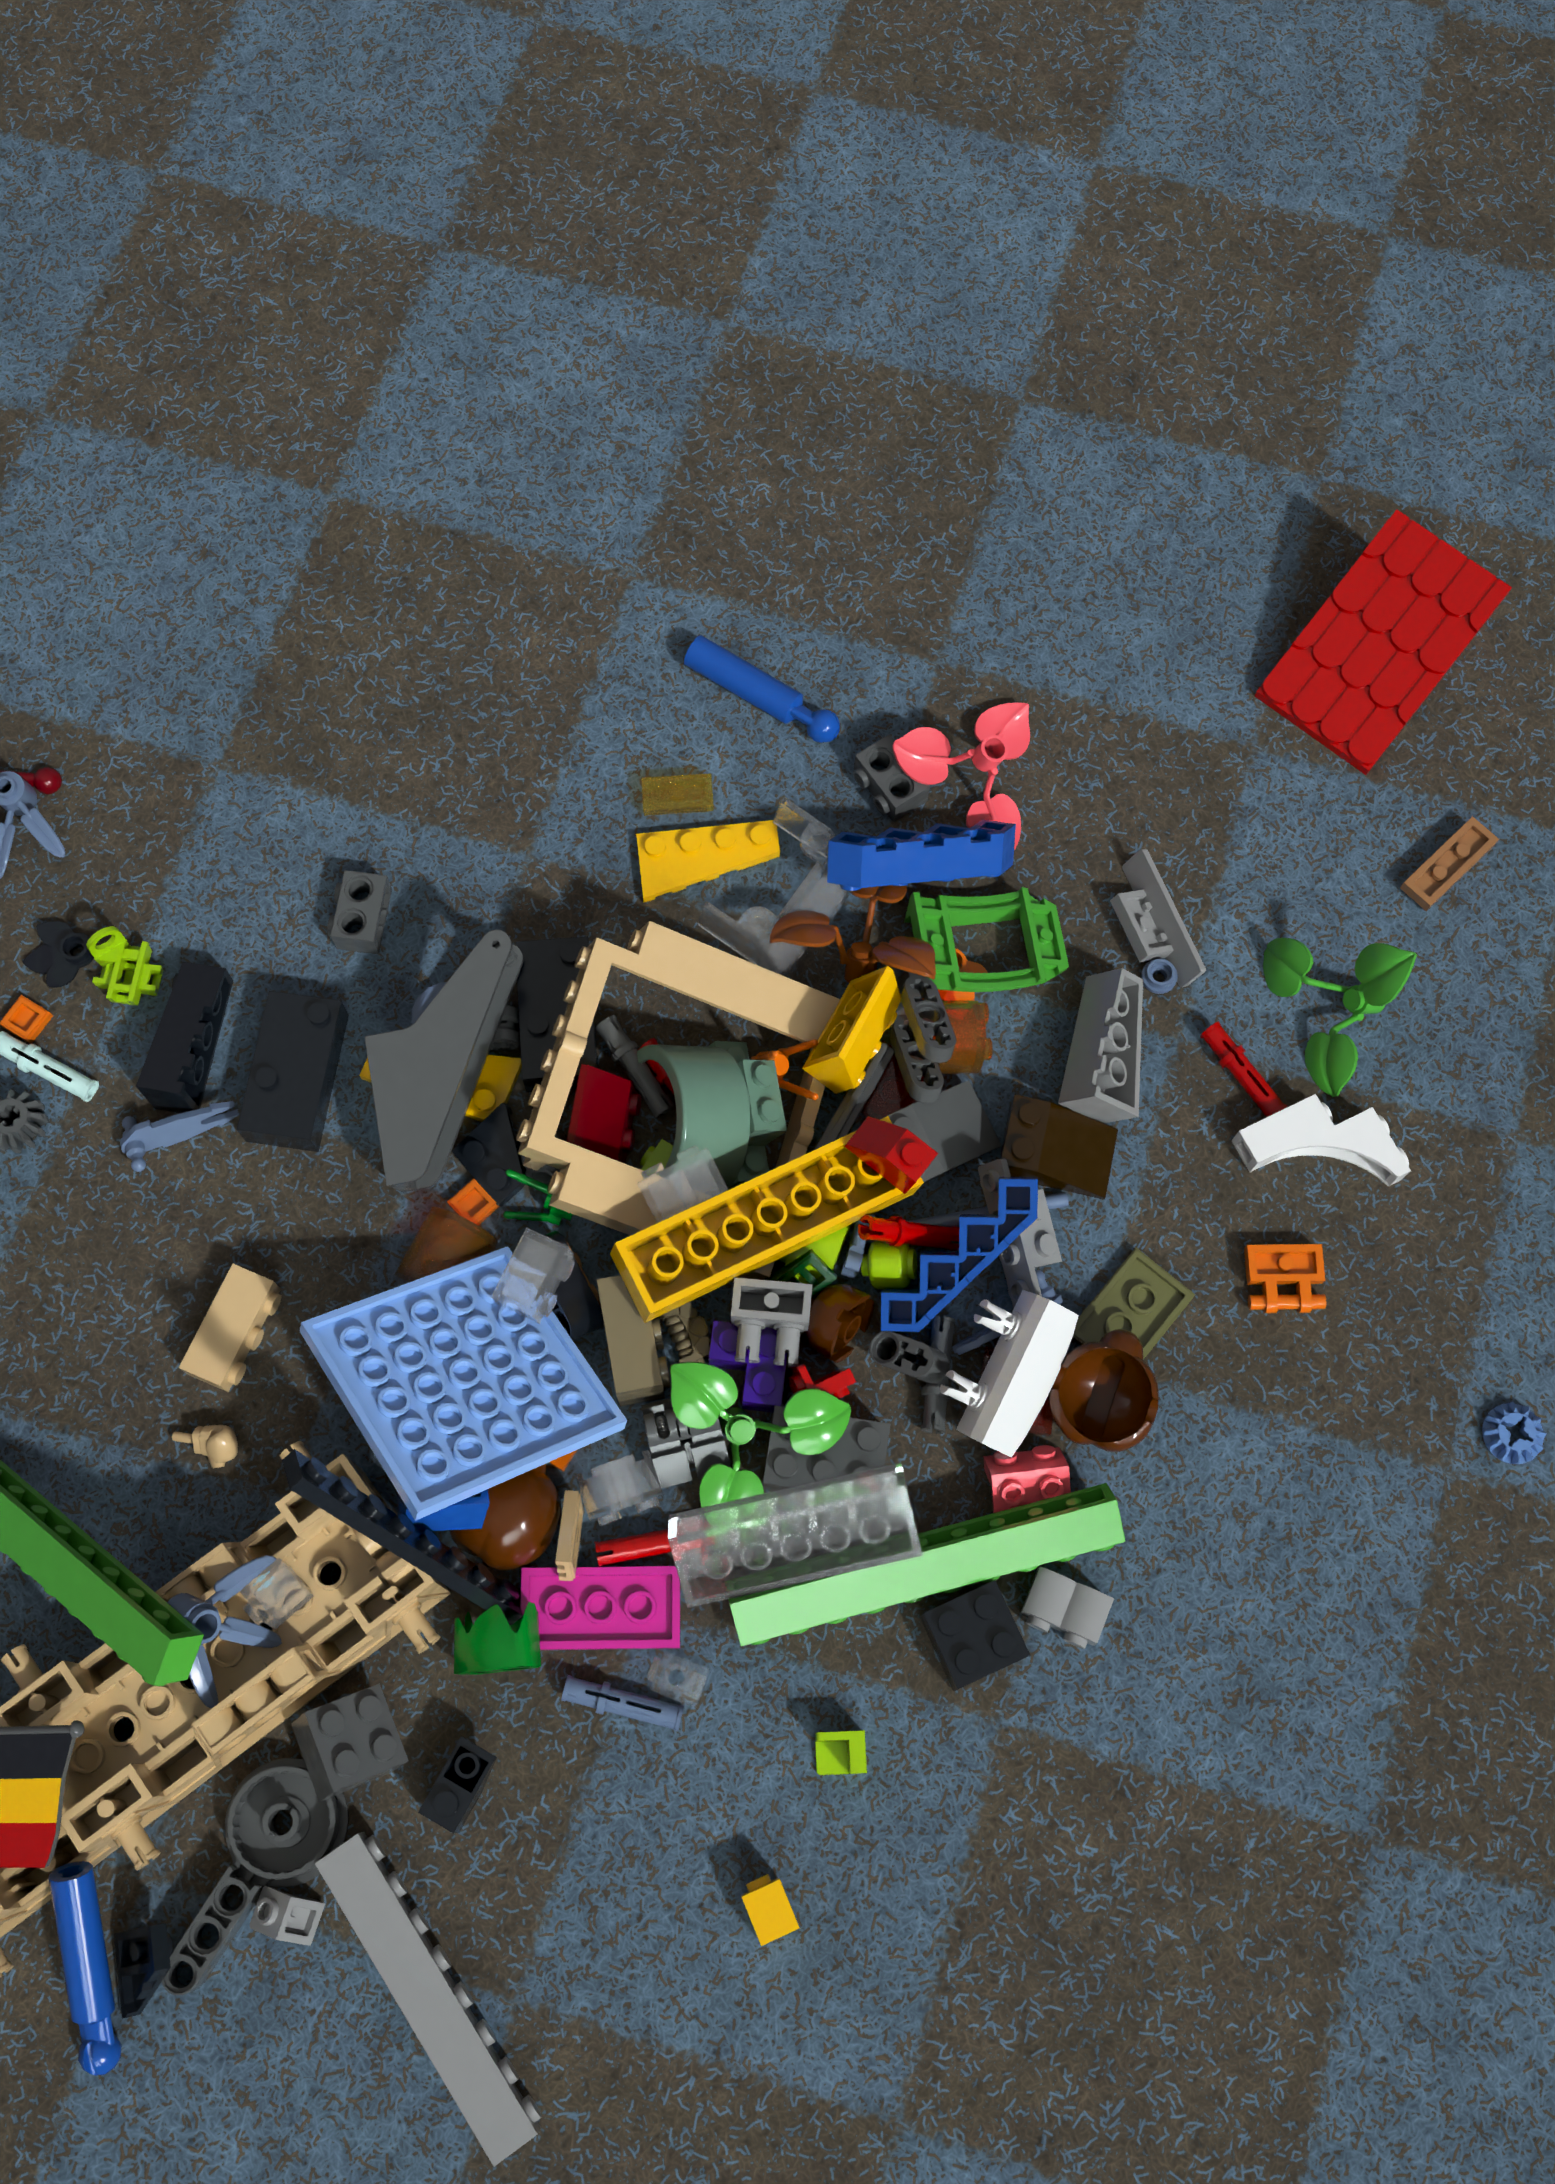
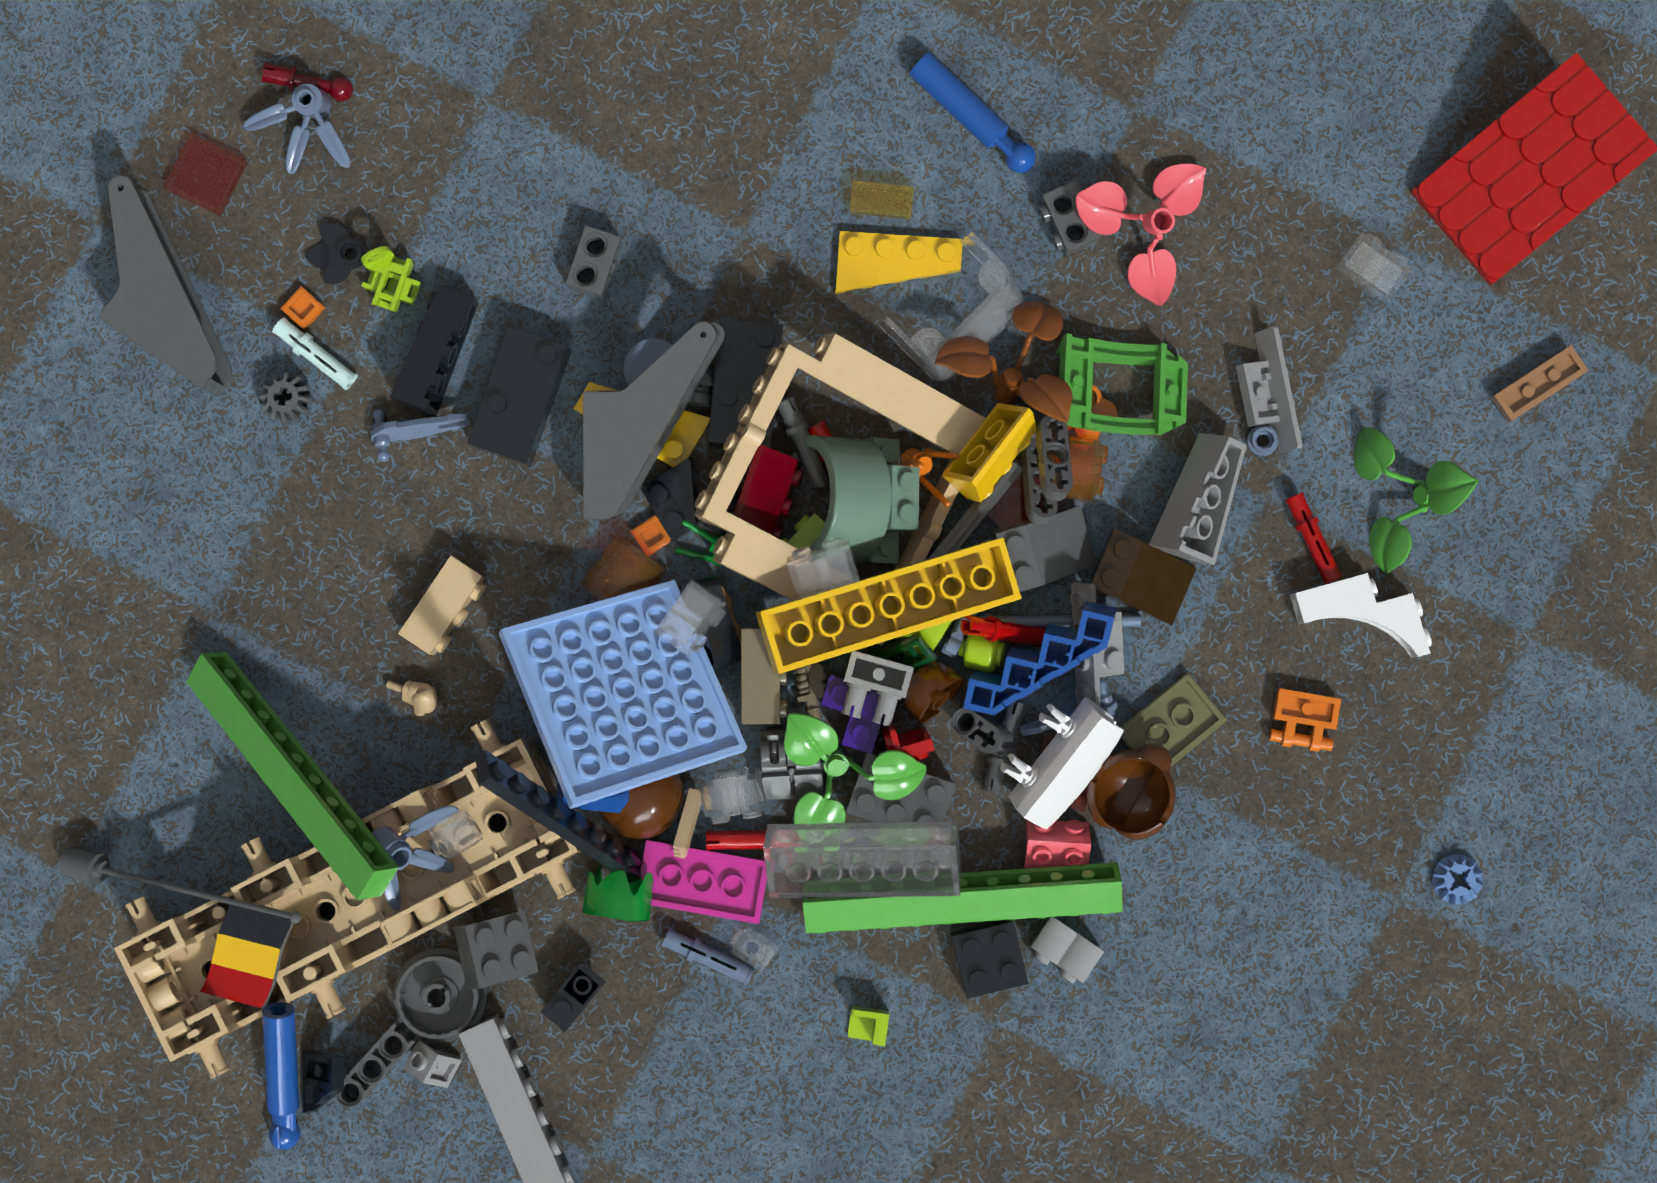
camera: 15 degrees right, 15 degrees up
(769, 1909) = (792, 1129): yellow brick -> none
(891, 1152) = (999, 572): red slope -> none
(915, 856) = (1076, 305): blue brick -> none
(1236, 773) = (1374, 267): none -> clear brick

